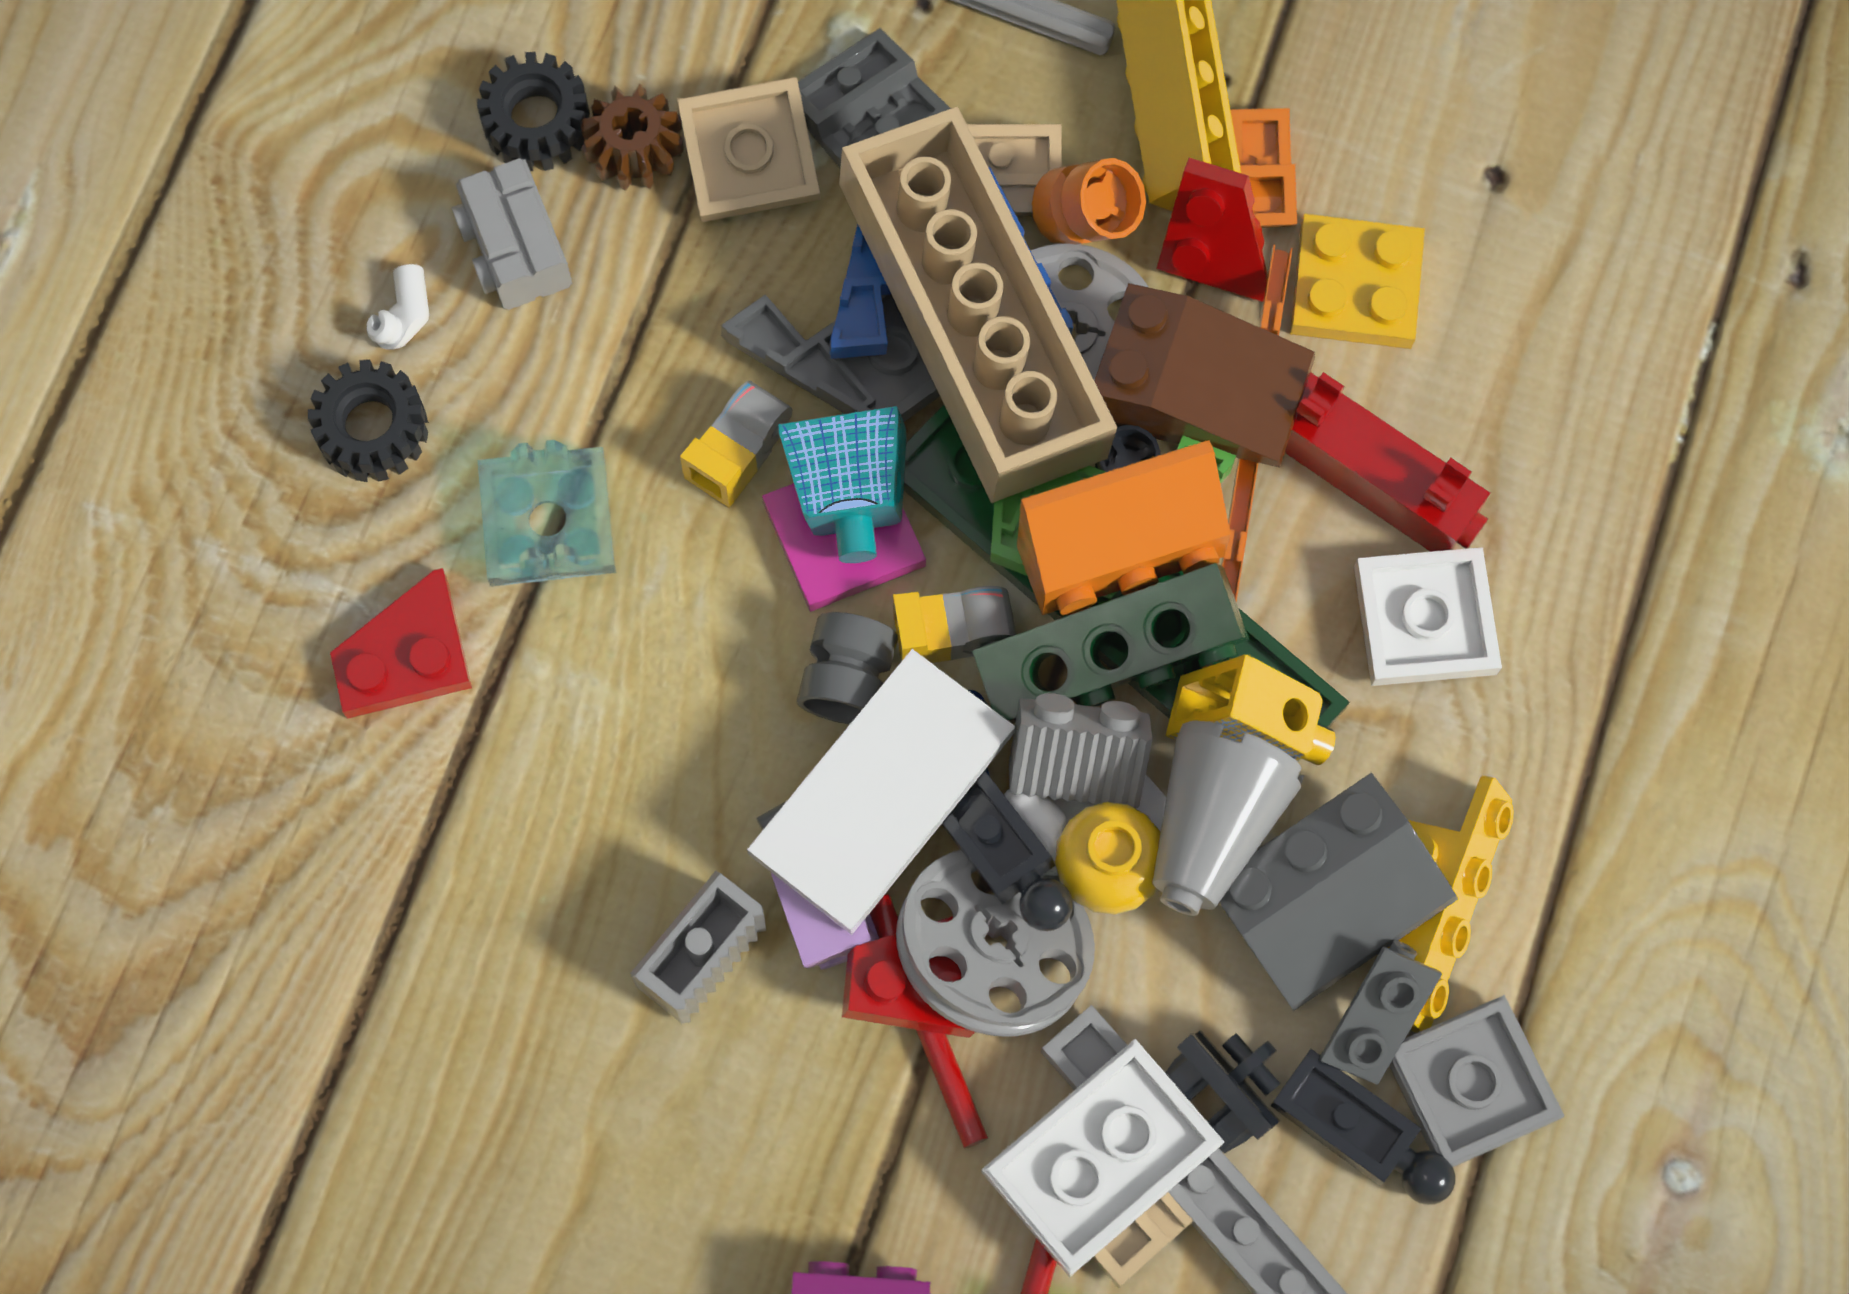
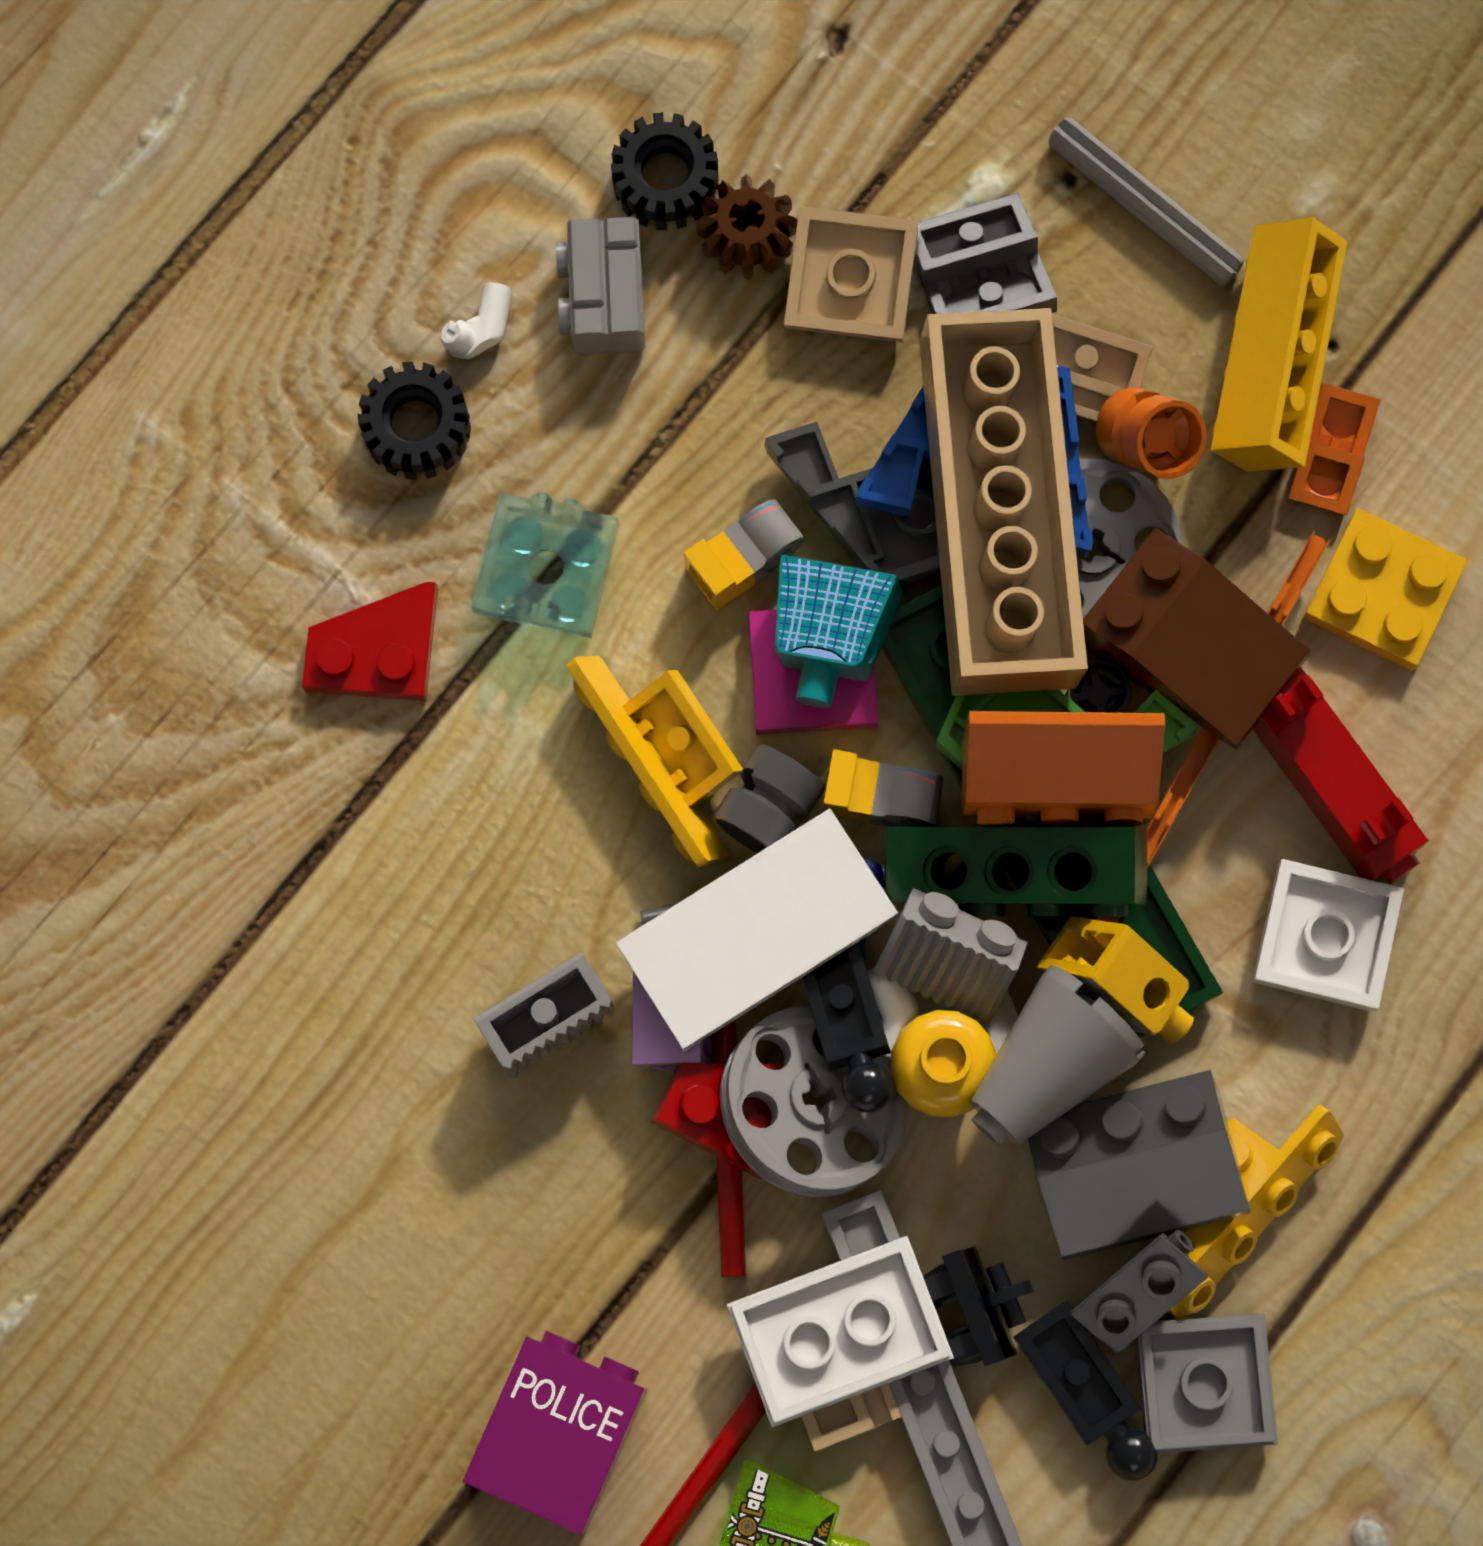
camera: 25 degrees right, 5 degrees up
(730, 648) = (668, 747): none -> yellow bracket
(1215, 232) = (1261, 500): red wing -> none

